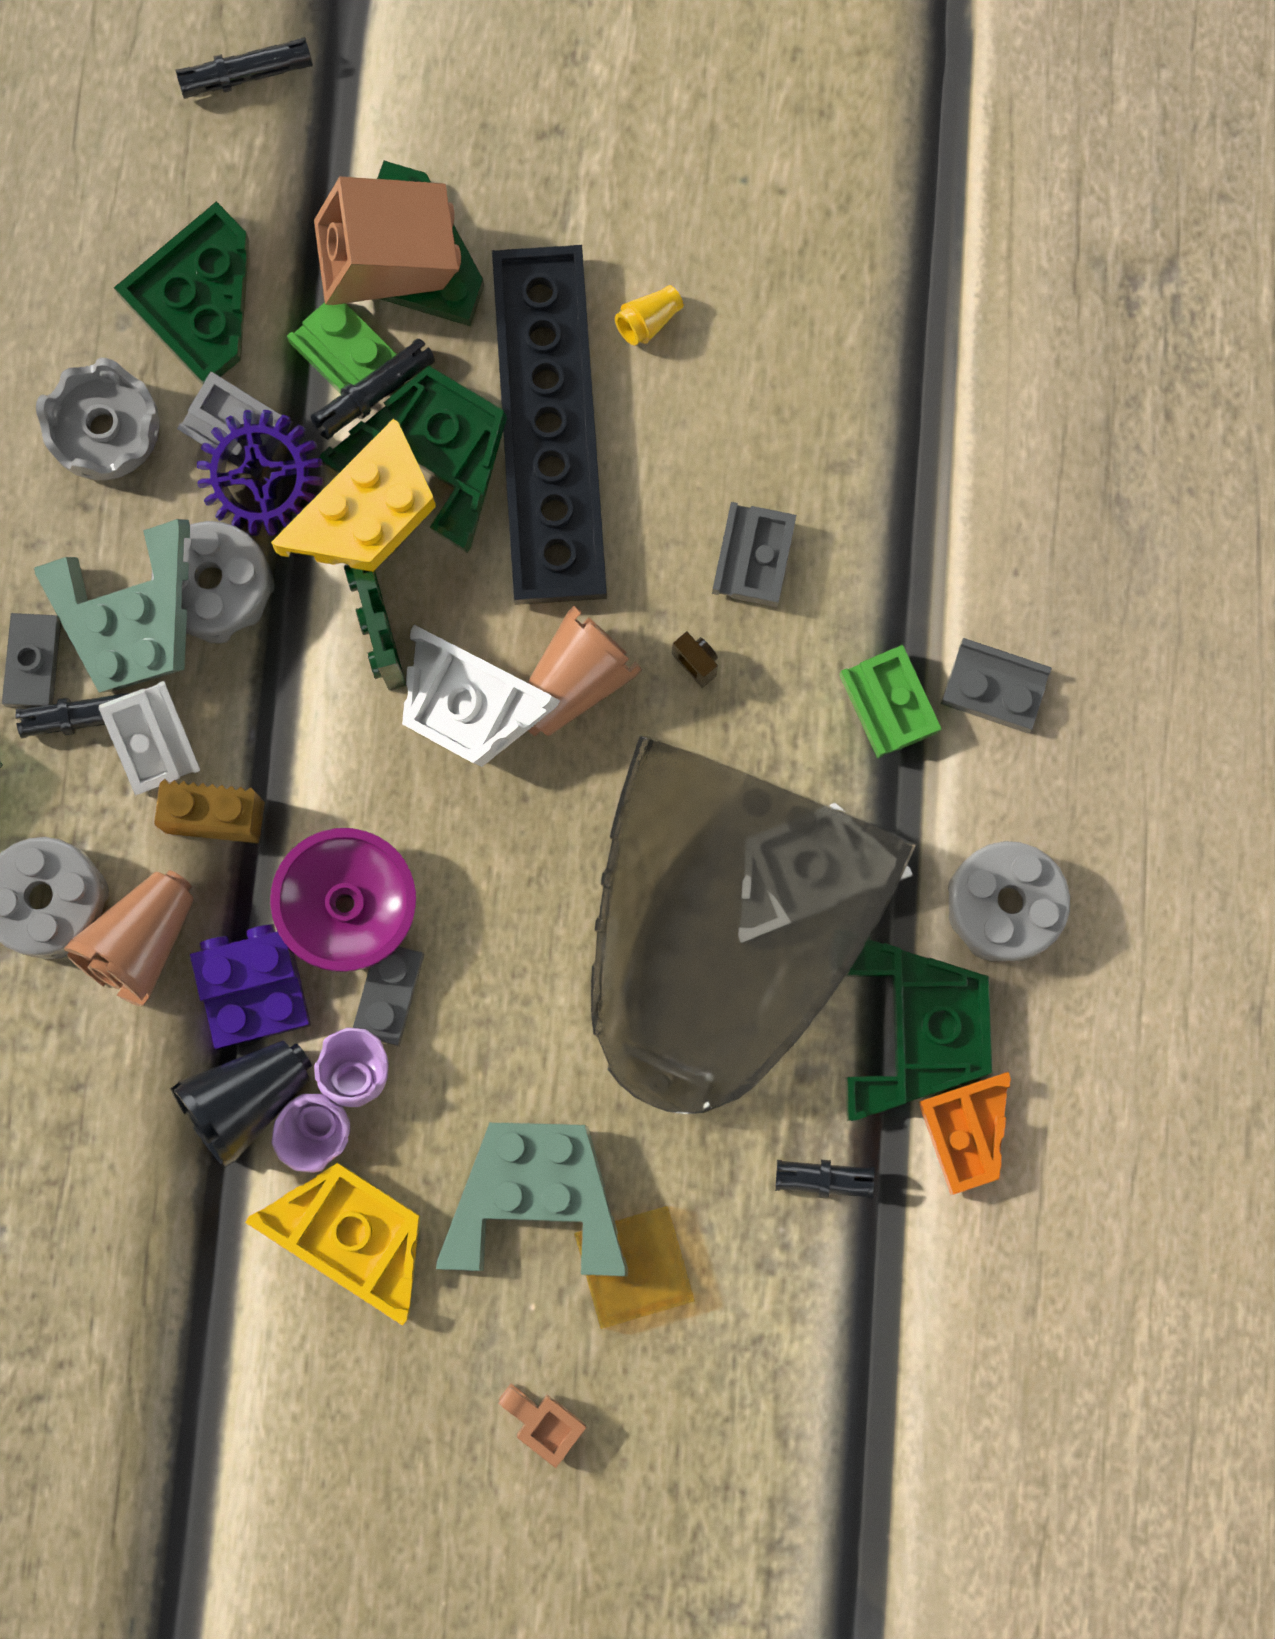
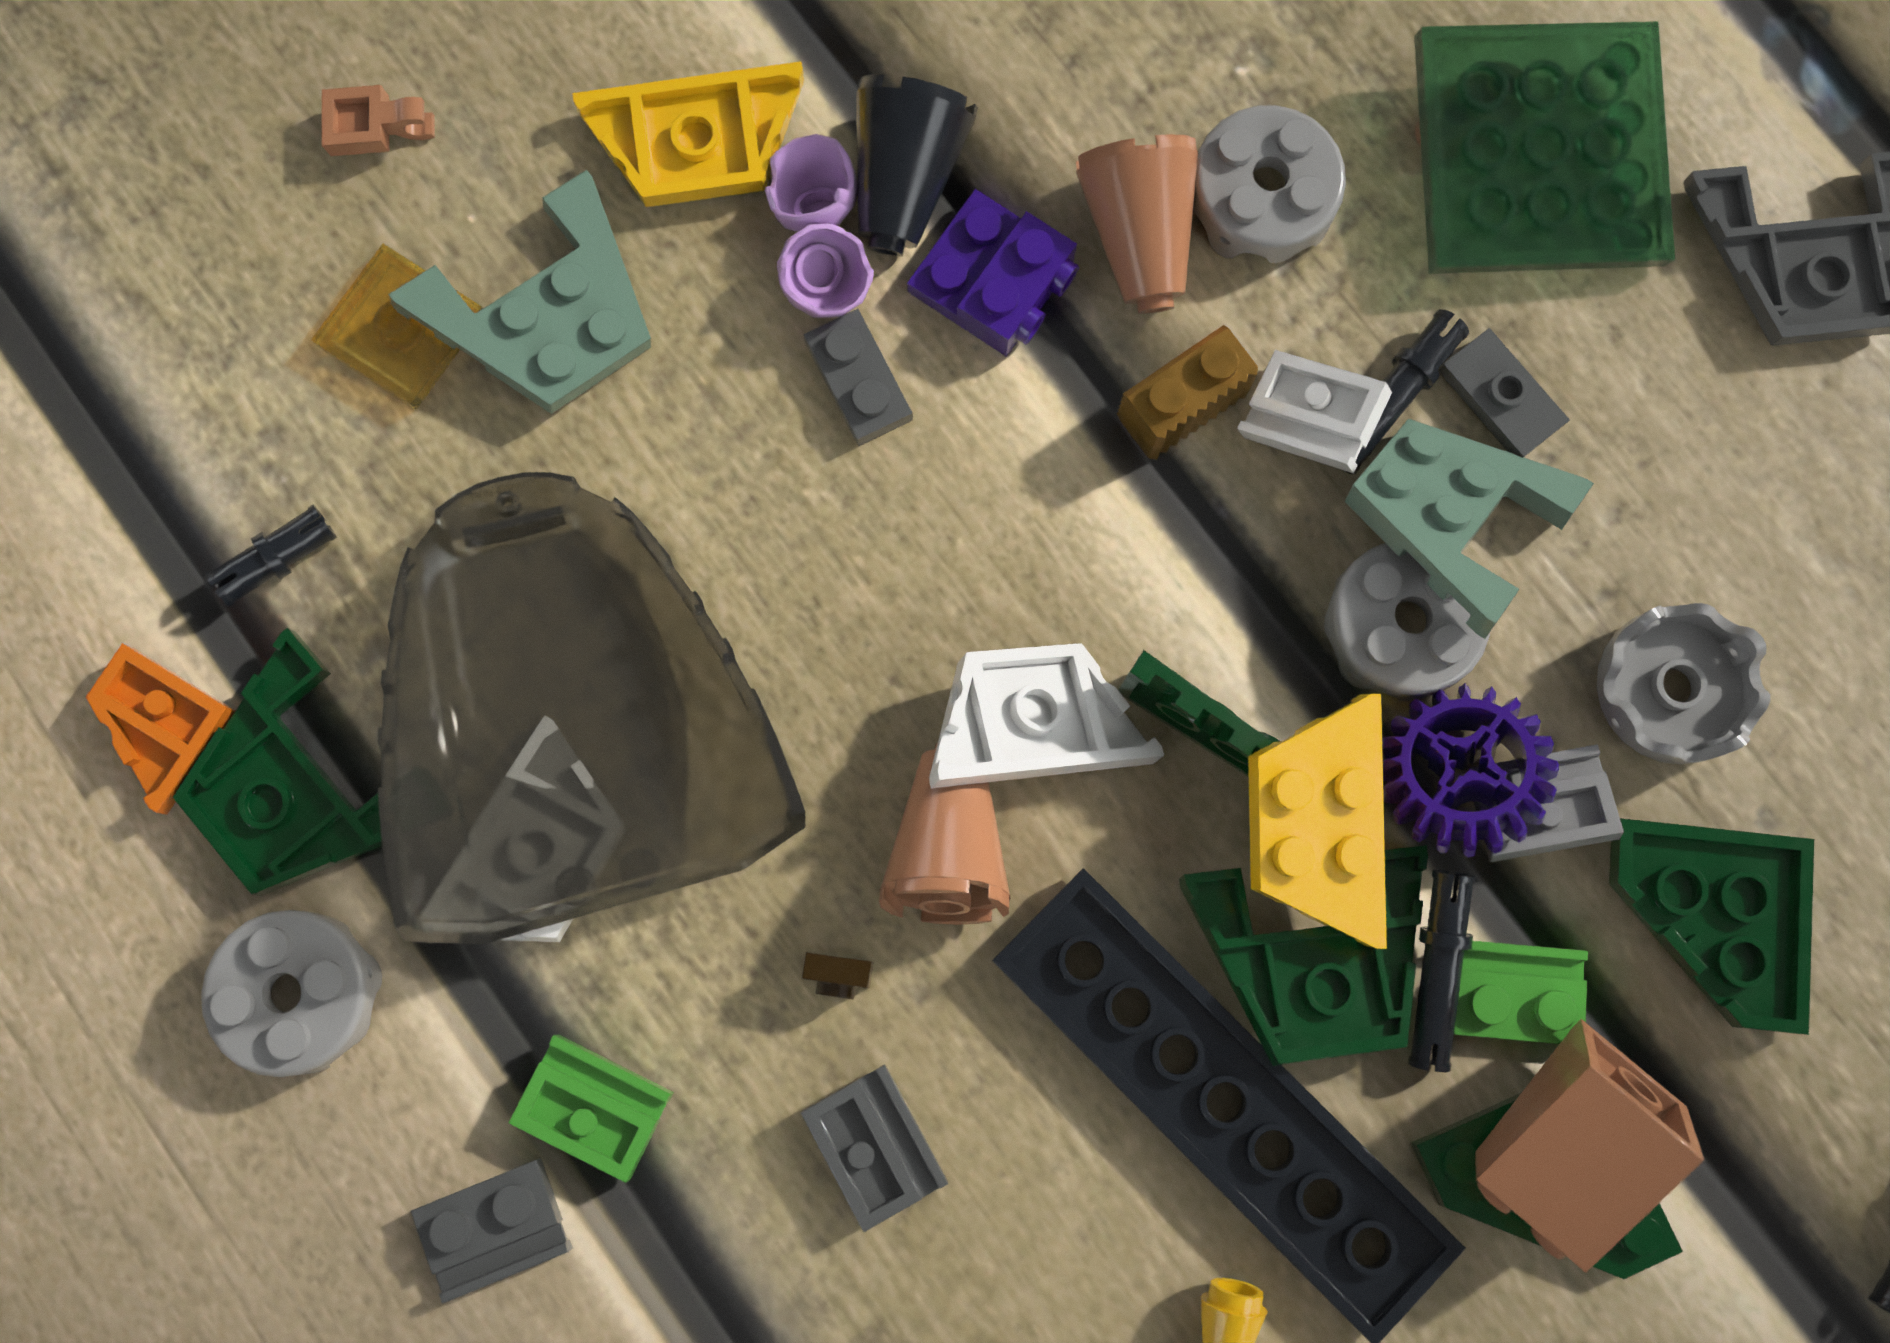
camera: 140 degrees right, 0 degrees up
(338, 866) = (965, 374): magenta dish -> none

